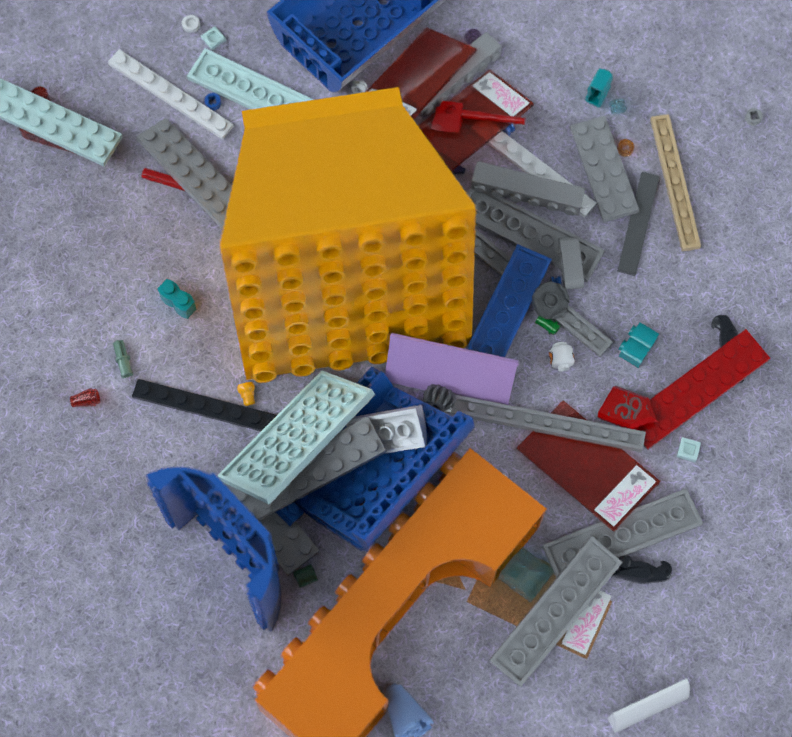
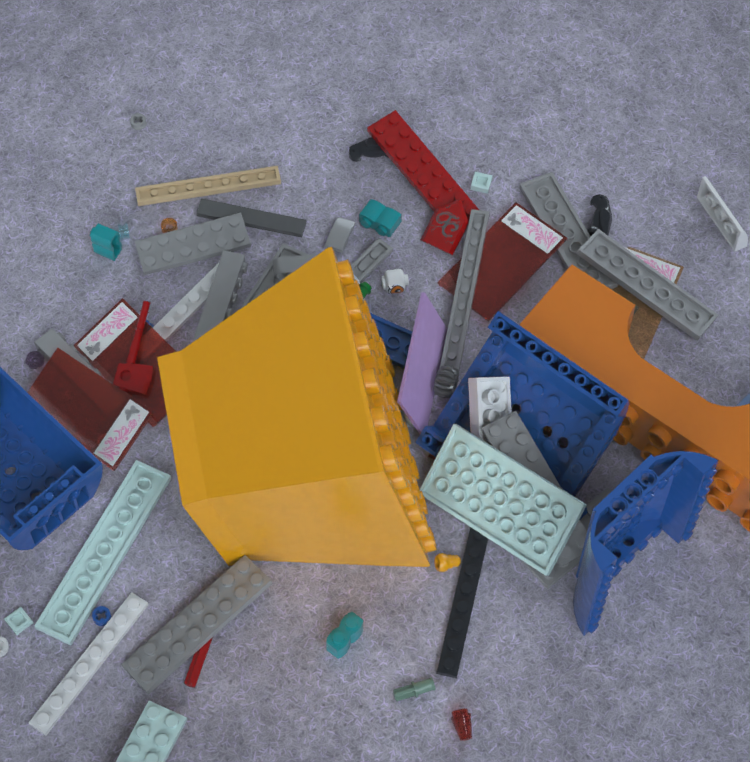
camera: 90 degrees left, 10 degrees down
(619, 305) = (339, 234): none -> light grey slope

